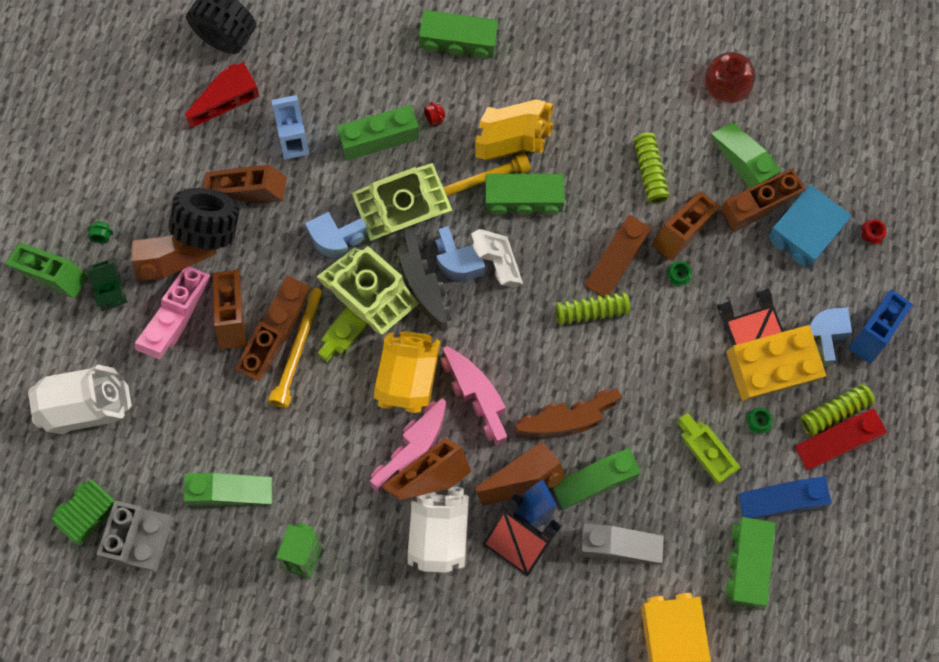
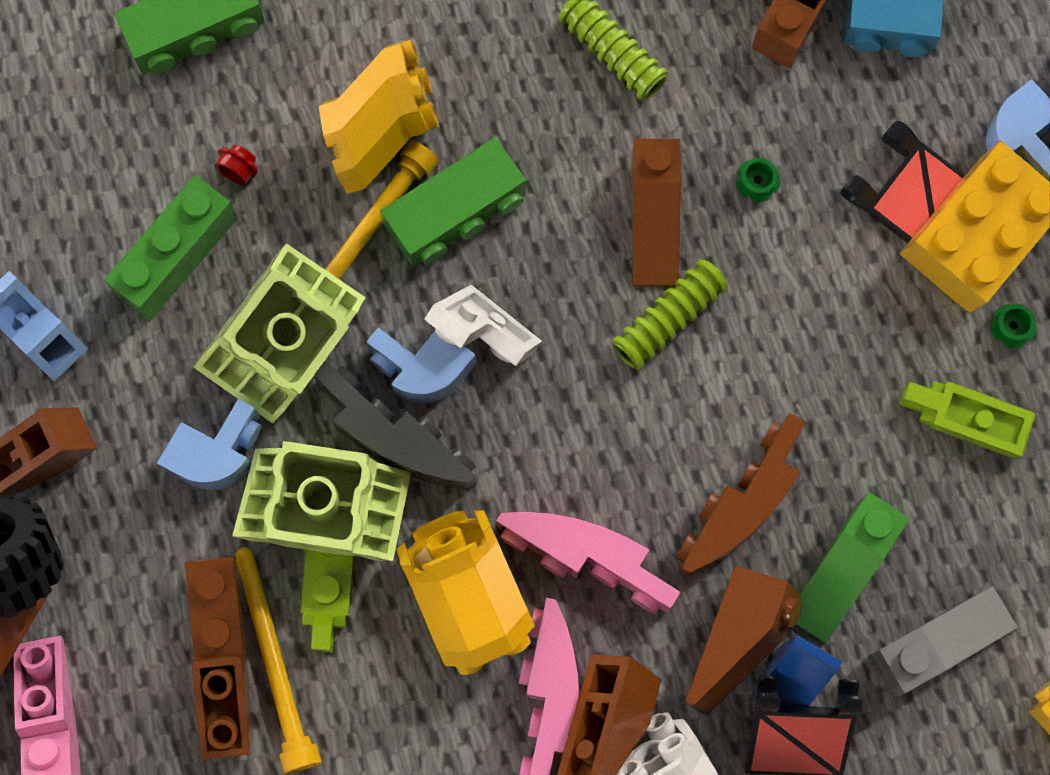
camera: 30 degrees left, 5 degrees up
(229, 310) = (128, 672): dark orange slope -> none
(685, 226) = (720, 103): dark orange slope -> none

